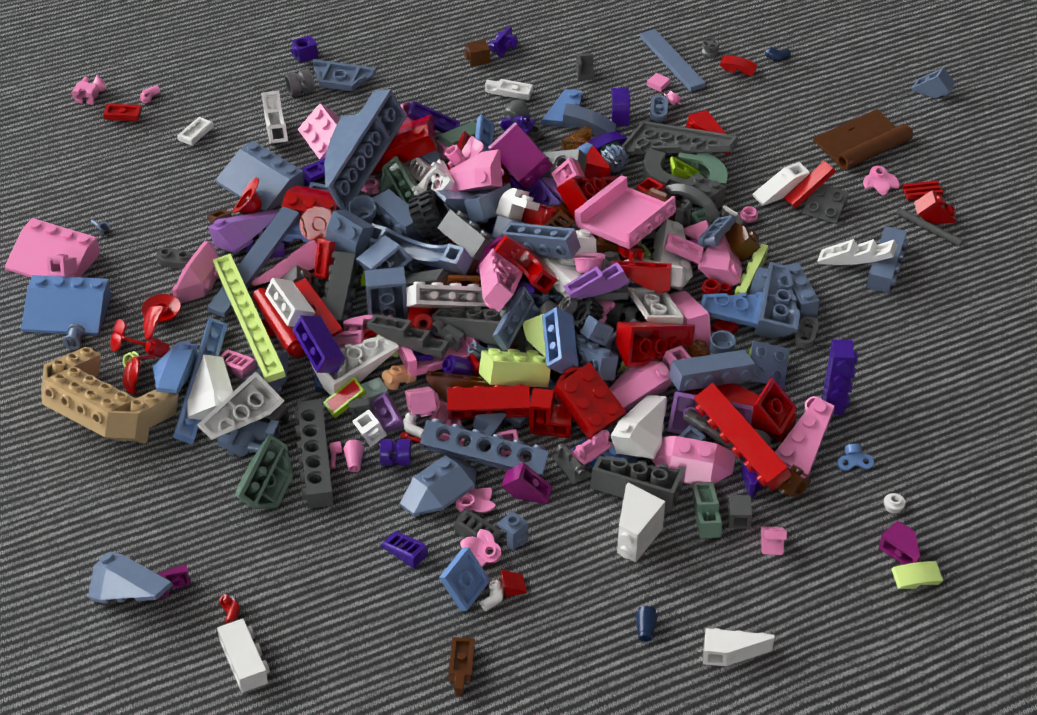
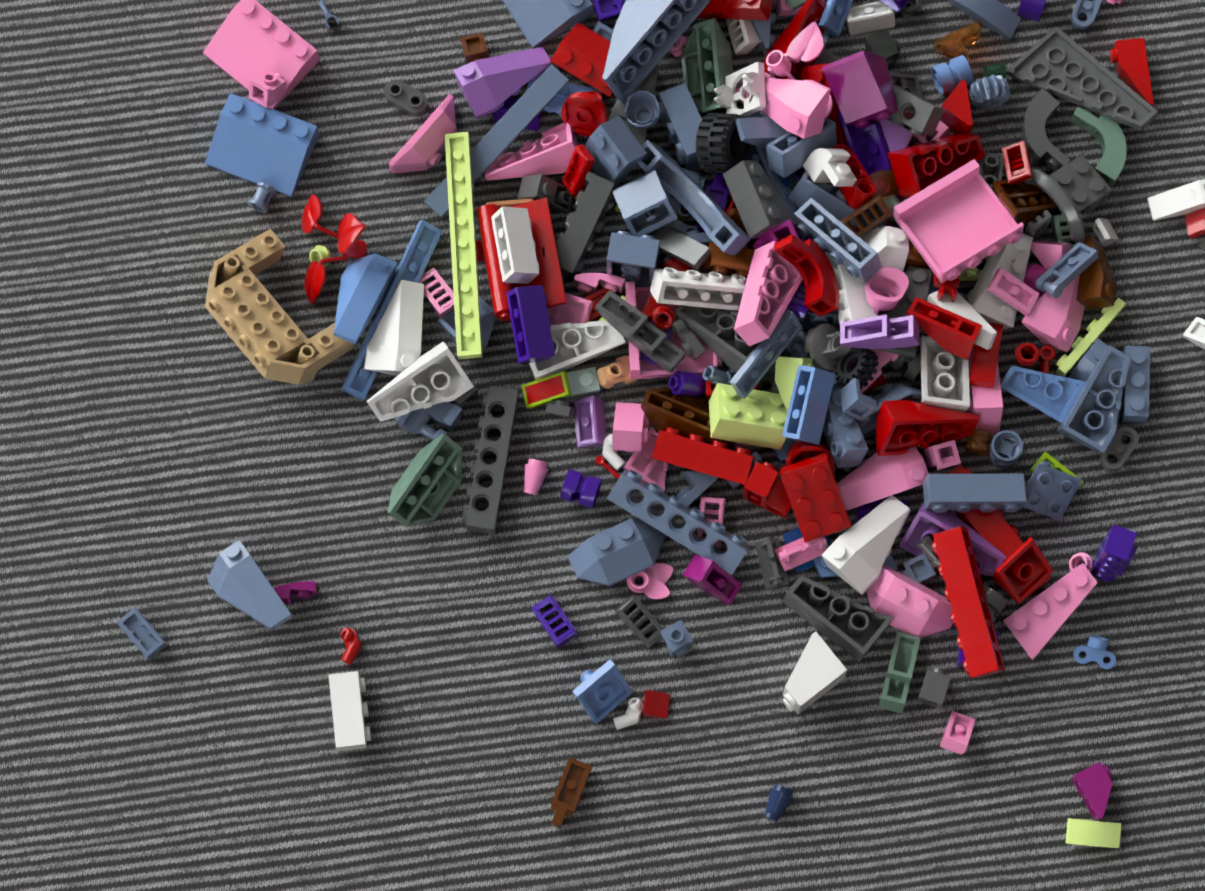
camera: 20 degrees right, 30 degrees up
(36, 647) = (141, 633): none -> sand blue plate
(169, 301) = (367, 172): red dish -> none
(250, 200) = (515, 31): red piece -> none
(335, 448) = (517, 457): bright pink hand -> none
(369, 428) = (558, 449): white brick -> none
(480, 545) = (631, 648): bright pink plate -> none
(566, 170) = (910, 138): bright pink slope -> none
(607, 138) = (996, 49): dark purple slope -> none
(682, 169) = (1074, 140): lime slope -> none
(683, 296) = (985, 361): none -> red tile
(722, 325) = (1024, 412): red tile -> none
(730, 647) = (851, 860): white slope -> none
(749, 214) = (1131, 227): bright pink plate -> none
(796, 483) = (1014, 668): reddish brown brick -> none
(894, 503) = (1107, 732): white plate -> none

